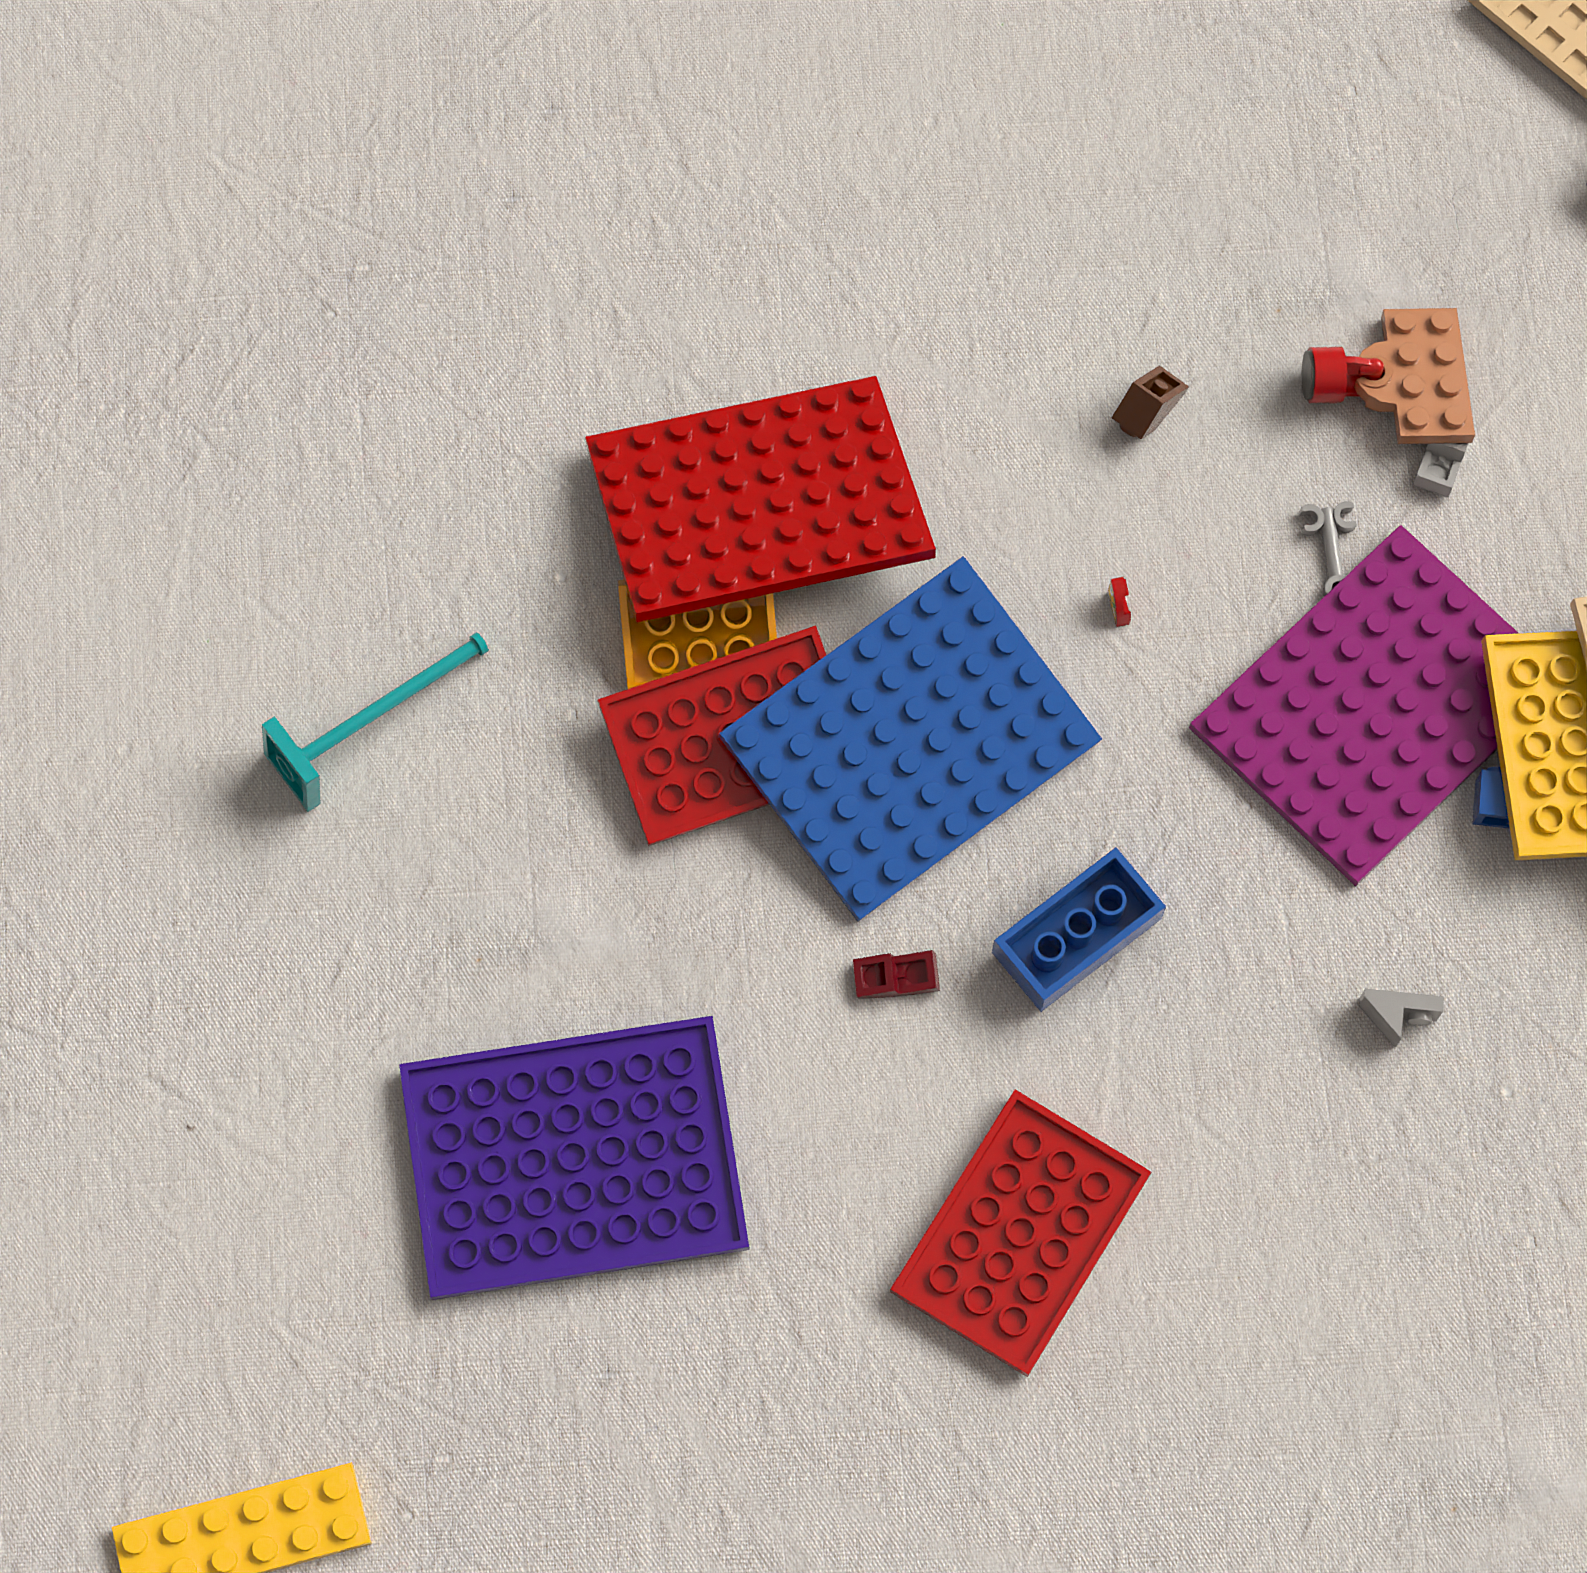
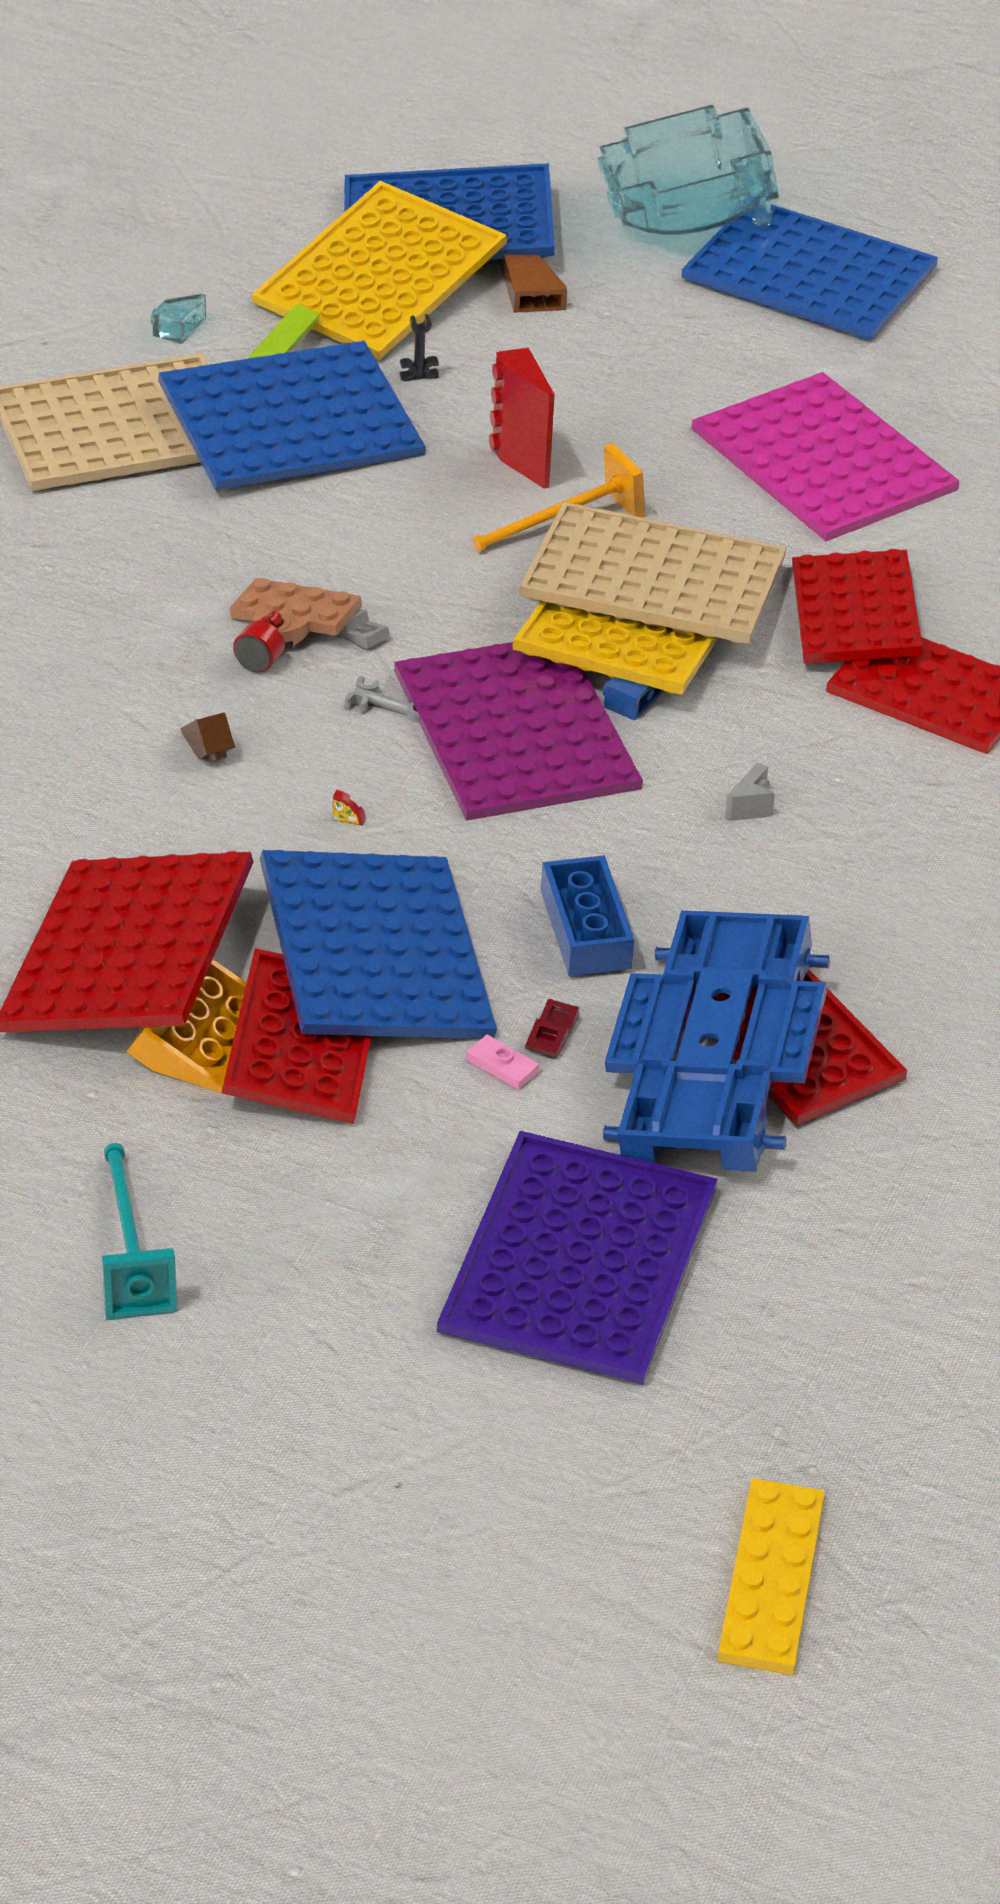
camera: 65 degrees left, 30 degrees down
(819, 948) = (502, 1062): none -> bright pink plate
(826, 1160) = (702, 1094): none -> blue piece

